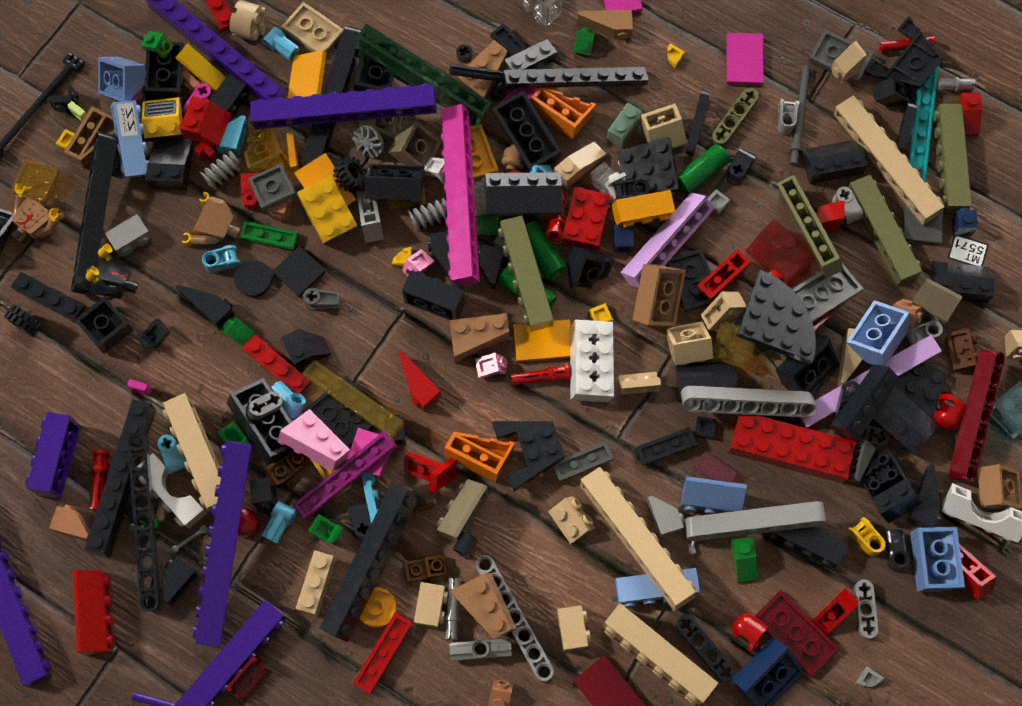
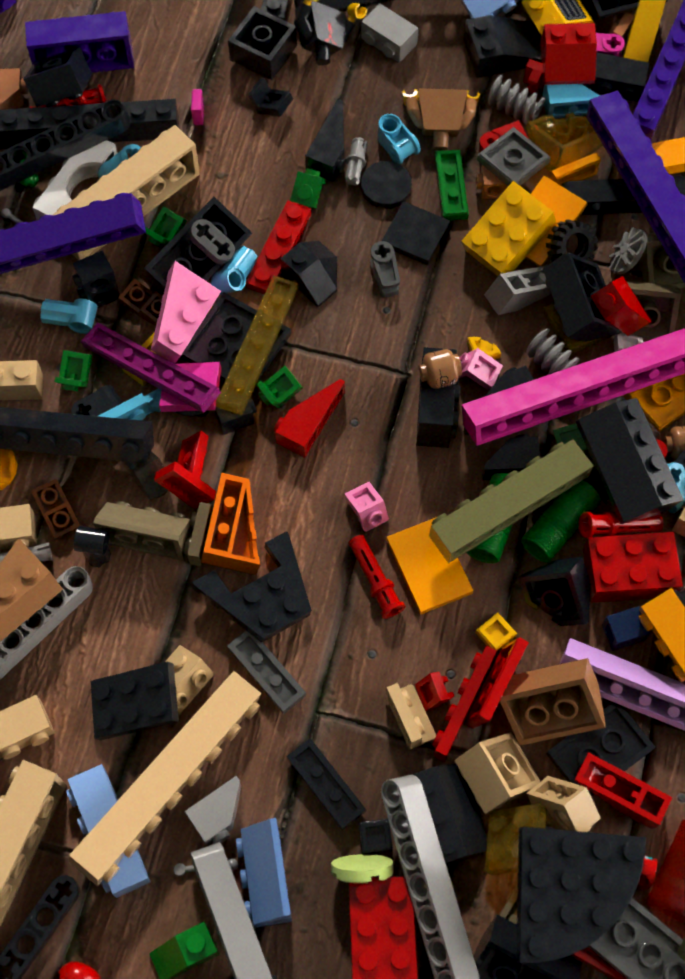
camera: 70 degrees right, 5 degrees down
(81, 477) = (58, 77): none -> black brick
(227, 292) = (356, 161): none -> light grey axle
(248, 524) = (56, 277): red helmet -> none
(387, 395) = (279, 388): none -> green bracket
(410, 160) = (621, 307): none -> red slope
(424, 283) = (440, 368): none -> medium nougat head
(469, 473) = (200, 522): none -> dark tan plate
(477, 333) = (404, 471): medium nougat wedge -> none
(579, 548) = (134, 701): none -> black plate
(581, 368) = (427, 619): white brick -> none
(627, 364) = (433, 691): none -> red tile
(637, 324) = (495, 683): none -> red tile
(645, 353) = (457, 713): none -> red plate
(714, 469) = (312, 870): clear pink tile -> none
(725, 438) = (361, 868): none -> yellowish green tile

